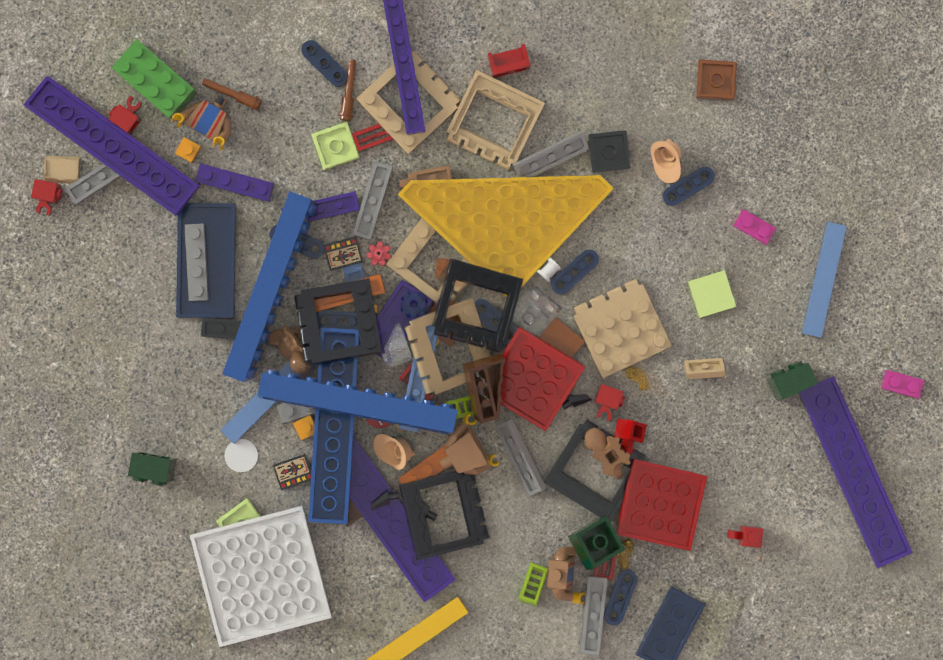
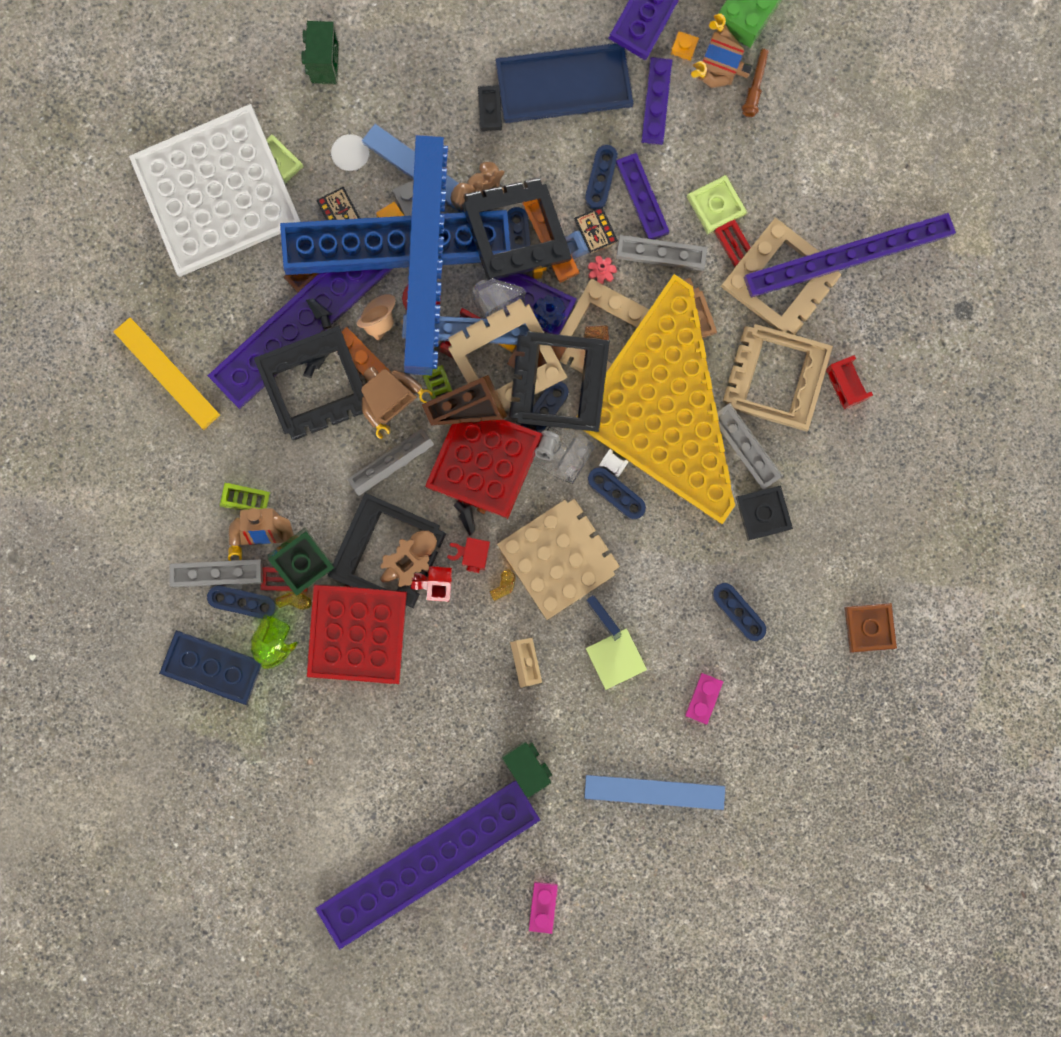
camera: 70 degrees right, 5 degrees down
(196, 262) = (560, 71): light grey plate -> none
(269, 287) = (546, 148): blue brick -> none
(330, 69) = (805, 186): dark blue plate -> none
(347, 100) = (771, 209): dark orange pin -> none
(528, 323) = (547, 445): none -> light grey bush
(562, 337) = (536, 490): dark orange tile -> none
(658, 579) = (268, 642): none -> clear neon green helmet
(666, 160) = (767, 580): light nougat piece -> none
(678, 298) = (604, 617): none -> dark blue tile
(748, 536) = (333, 745): red brick -> none

